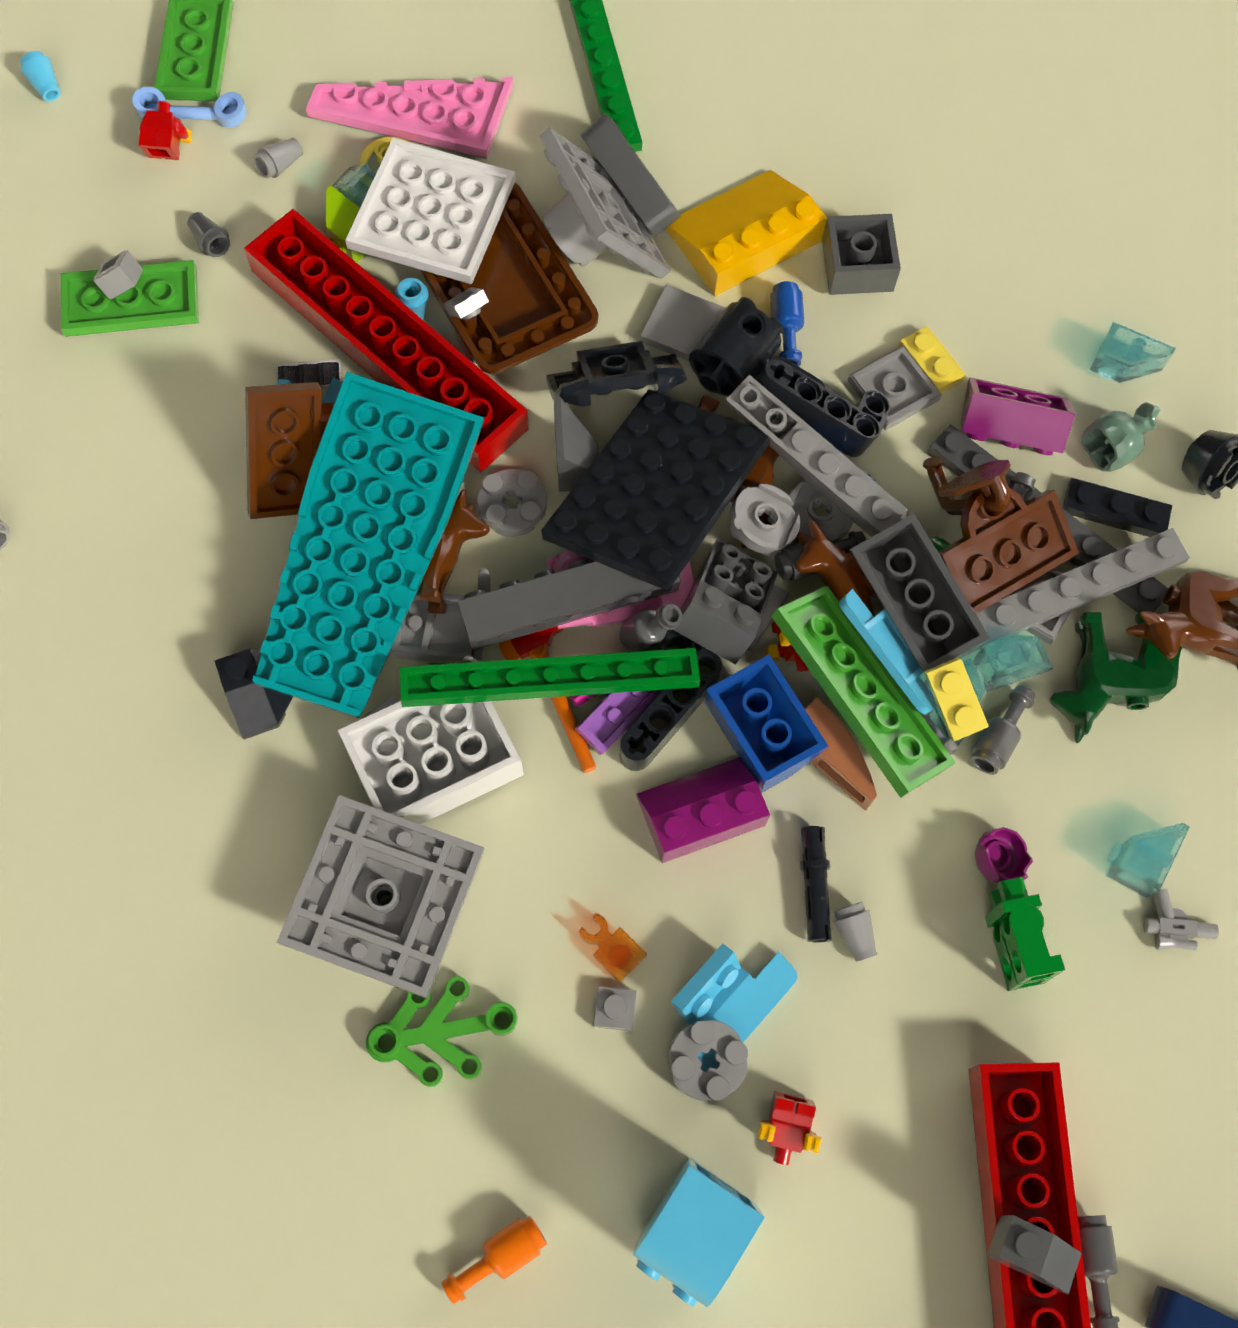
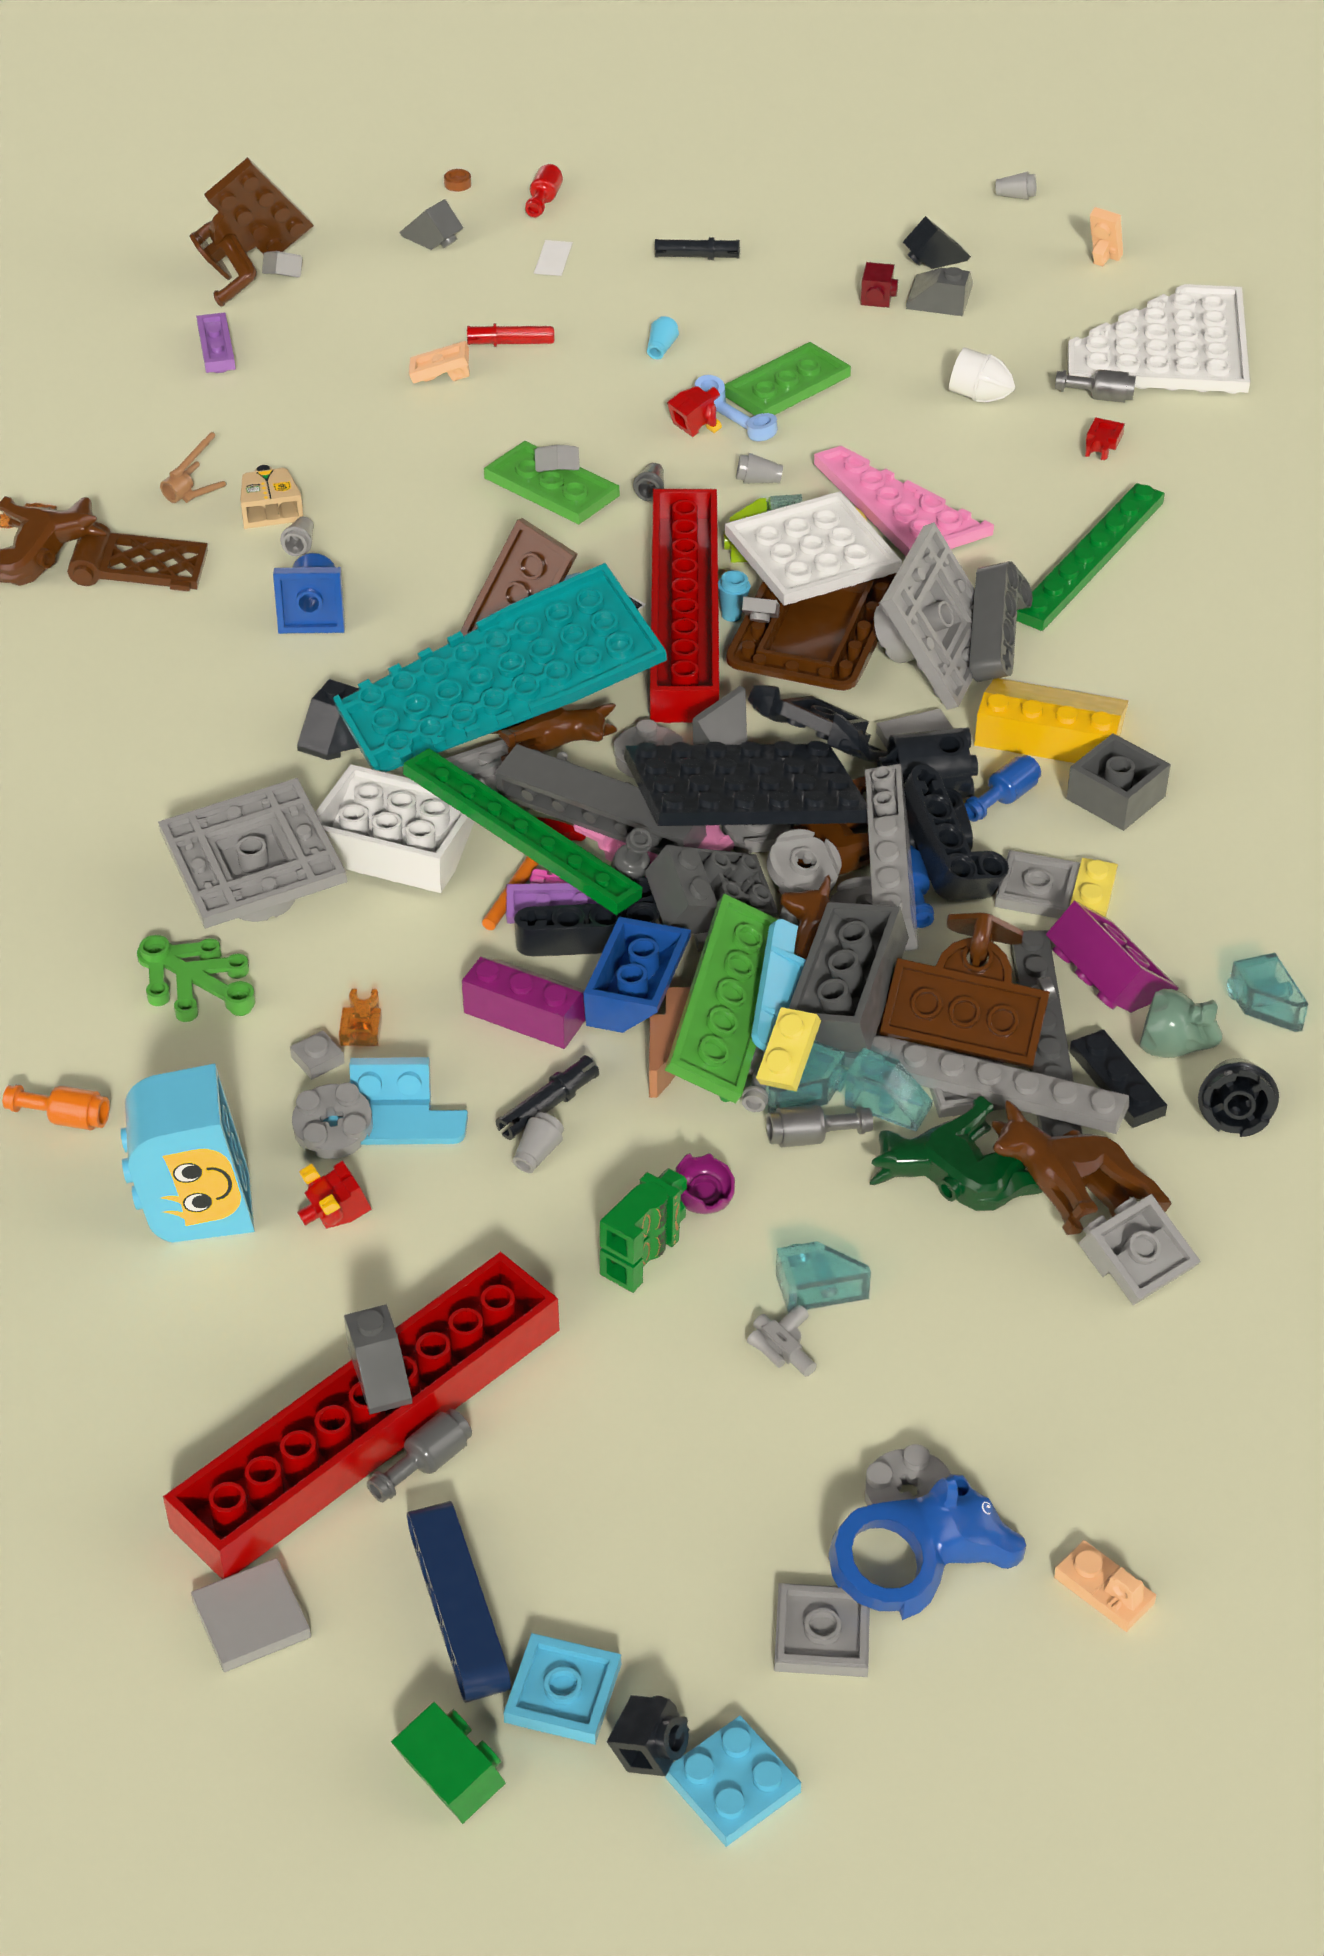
camera: 50 degrees right, 25 degrees down
(84, 587) = (309, 596): none -> blue plant

